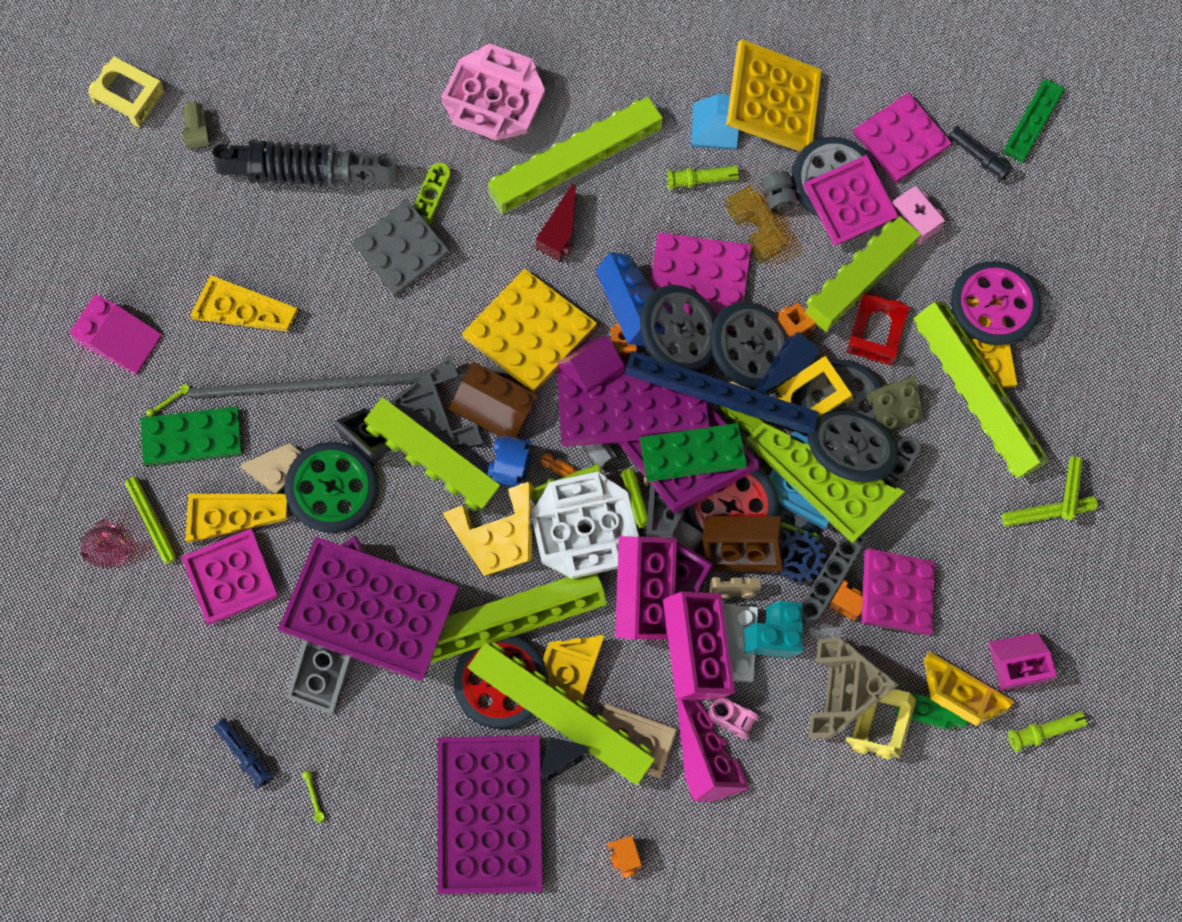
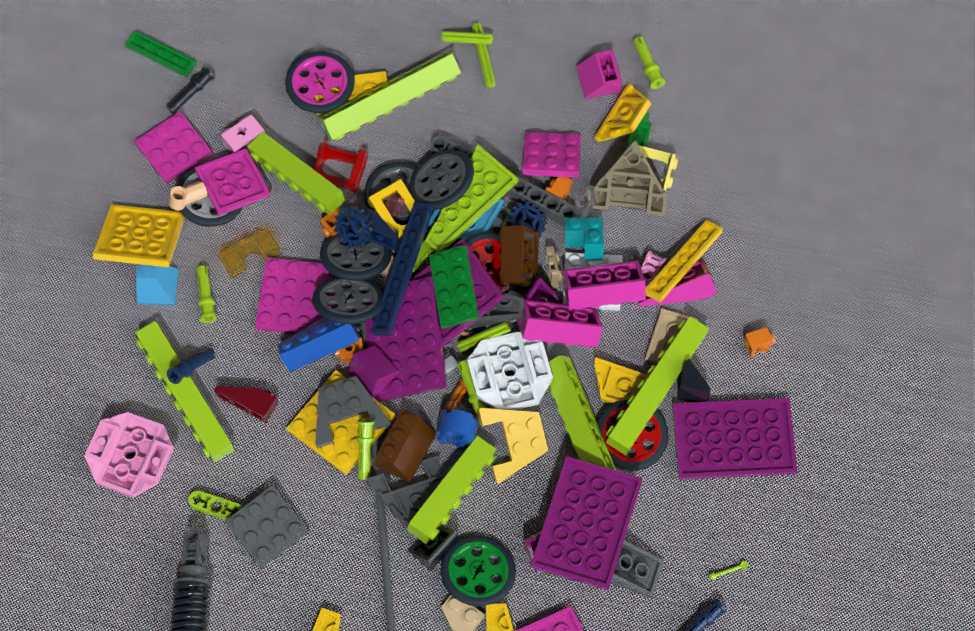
camera: 90 degrees left, 5 degrees down
(496, 351) = (365, 439): none -> lime pin
(550, 328) = (341, 402): none -> dark grey wing
(596, 149) = (186, 368): none -> dark blue pin
(739, 757) = (683, 261): none -> yellow plate
(779, 192) = (216, 235): dark grey wheel -> none
(782, 335) = (353, 226): none -> dark blue gear
(815, 390) = (395, 206): none -> clear pink tile
(828, 149) = (187, 194): none -> light nougat piece
(897, 403) = (401, 153): olive hinge -> none

